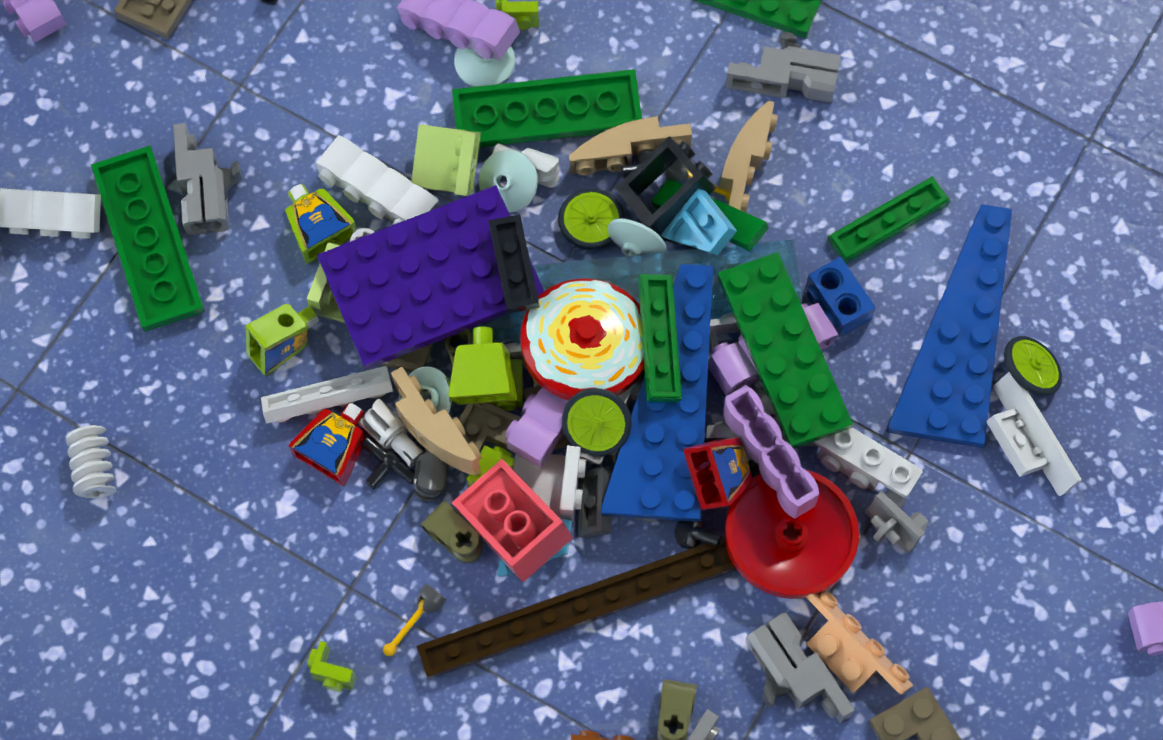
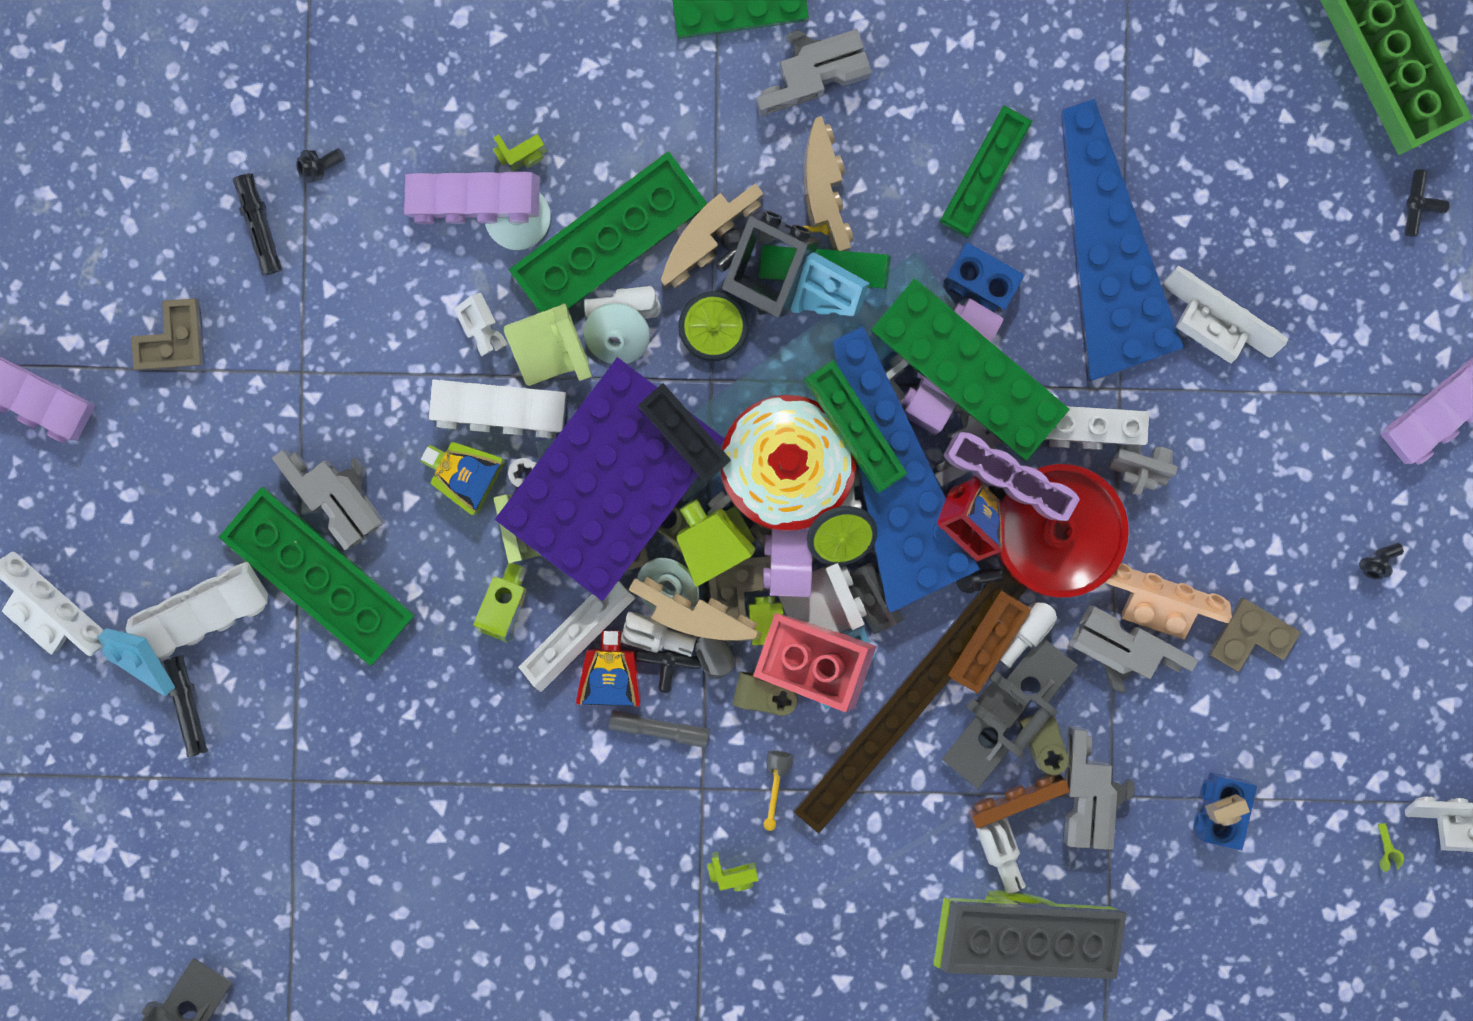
camera: 30 degrees left, 20 degrees up
(87, 462) = (409, 815): white piece -> none
(360, 526) = (638, 725): none -> dark grey piece
(402, 113) = (476, 322): none -> white plate
(635, 238) = (772, 333): light aqua dish -> none
(655, 658) = (1000, 706): none -> dark grey piece
(674, 590) = (989, 642): none -> dark orange plate
(714, 605) = (1033, 630): none -> white arm
(1033, 365) = (1191, 249): lime wheel -> none
(1066, 723) = (1377, 565): none -> black plate

